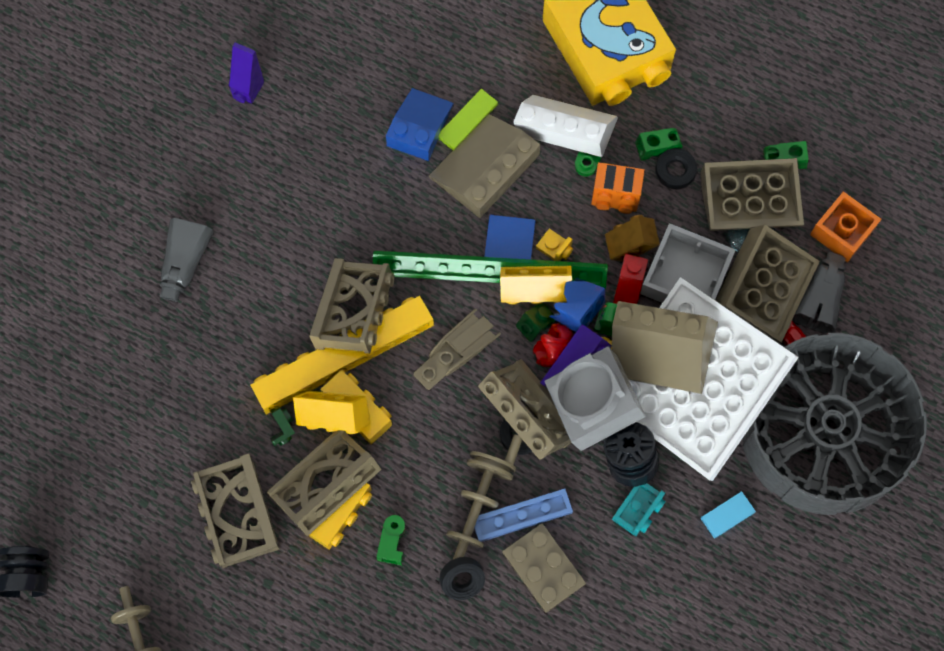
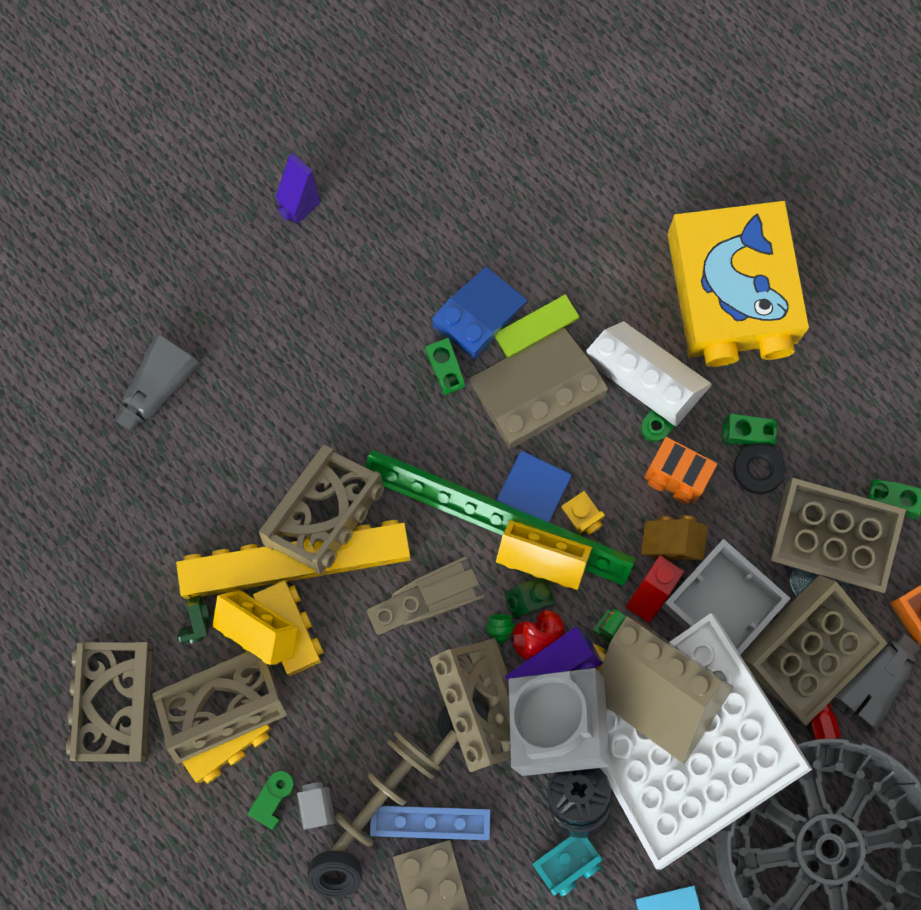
camera: 20 degrees right, 5 degrees up
(407, 170) = (445, 366): none -> green leg
(429, 531) = (315, 806): none -> light grey brick
(522, 350) = (500, 627): none -> green plate
(582, 304) = (587, 599): blue piece -> none

